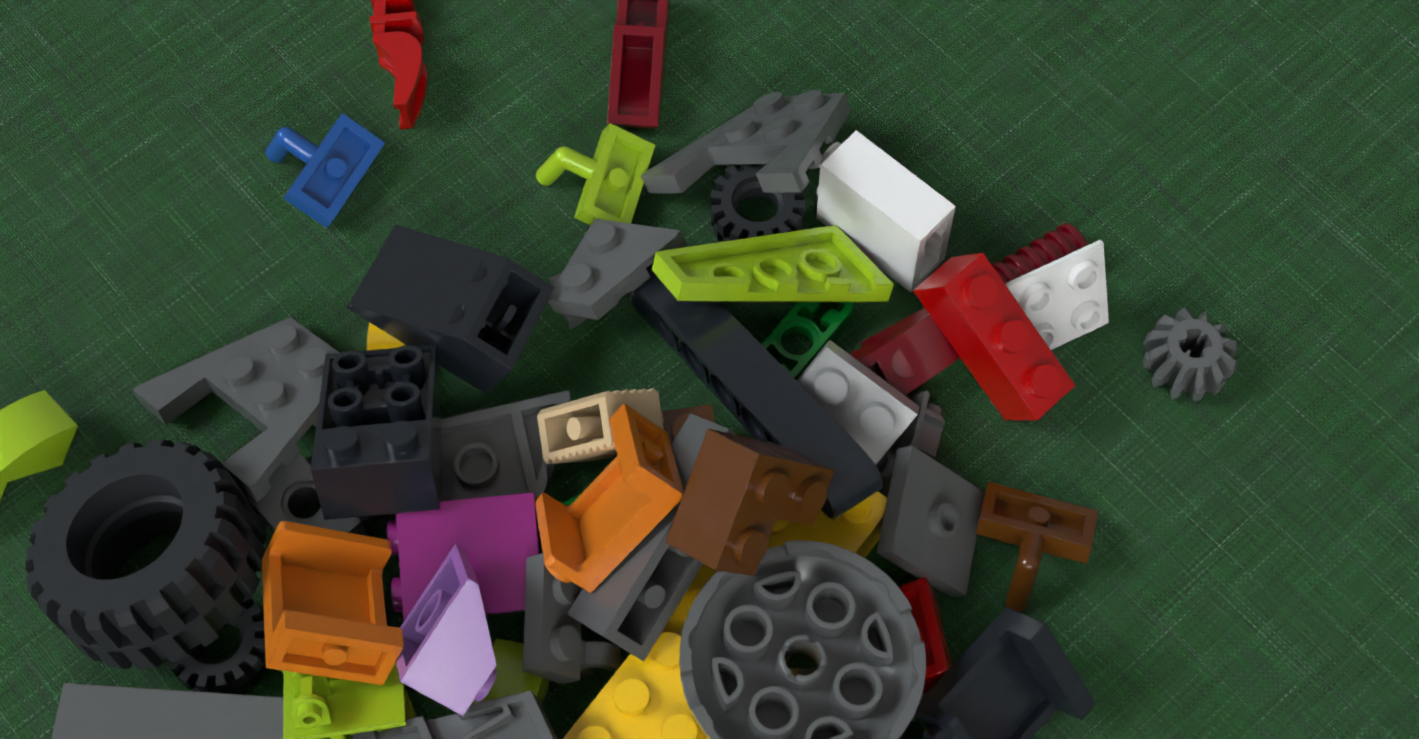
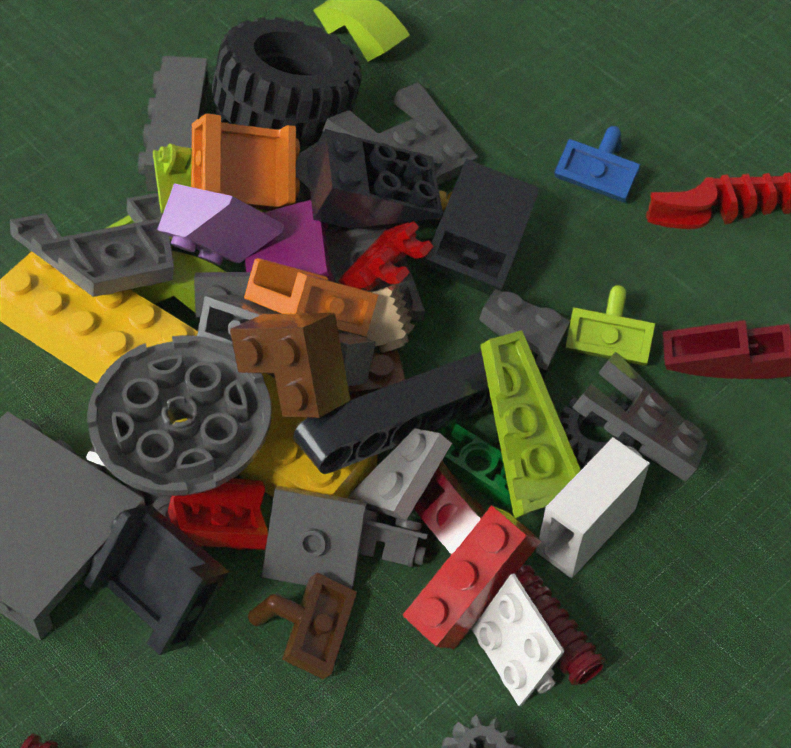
camera: 85 degrees right, 10 degrees down
(491, 433) = (378, 259): none -> red plate

